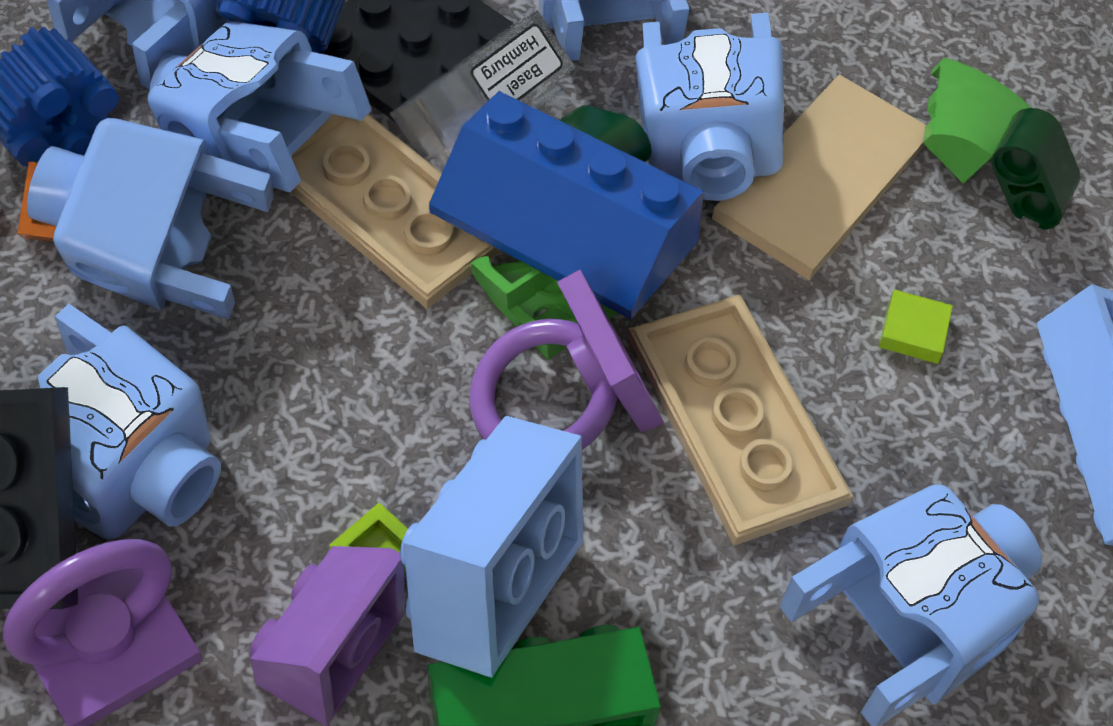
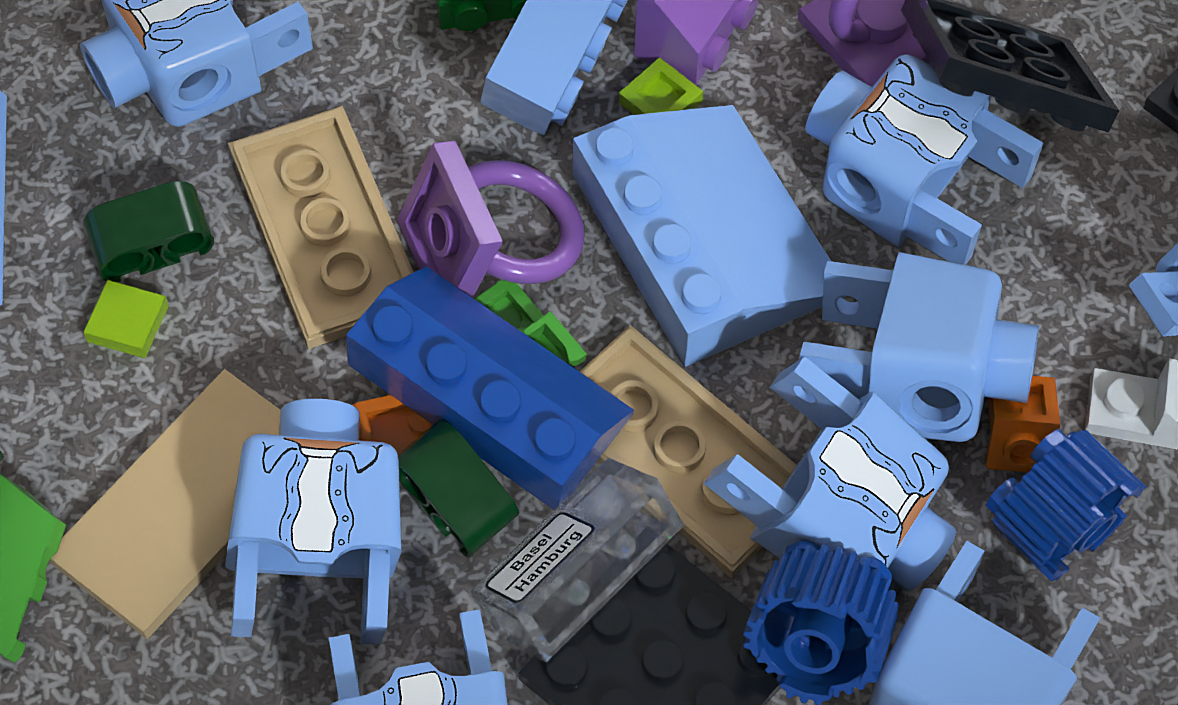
camera: 175 degrees left, 5 degrees up
(341, 391) = (701, 226): none -> light blue slope
(913, 394) = (147, 230): none -> dark green beam

